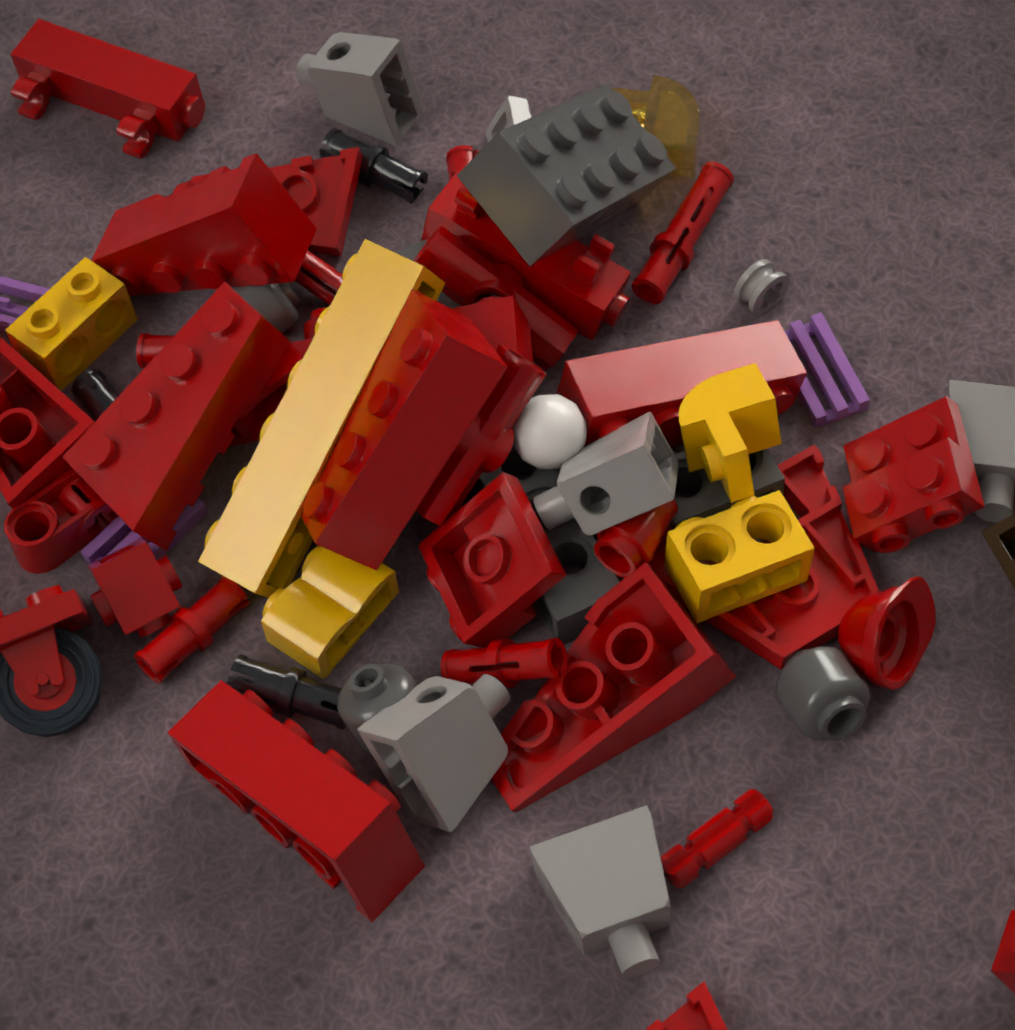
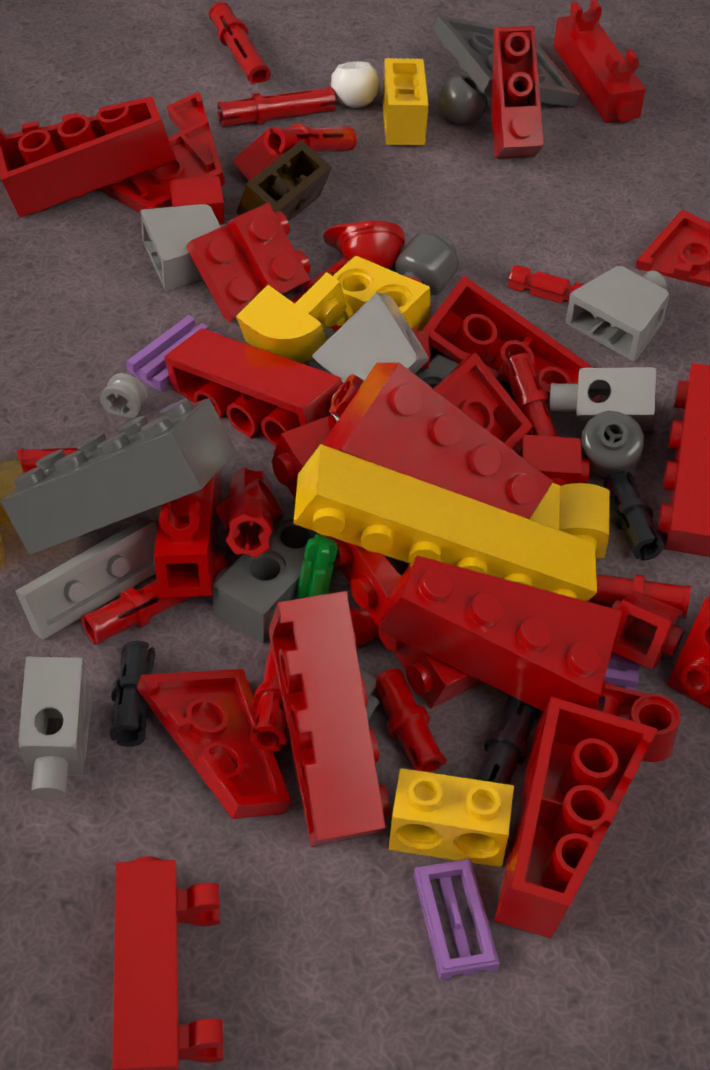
camera: 130 degrees left, 10 degrees down
(403, 632) = (556, 458): none -> red brick

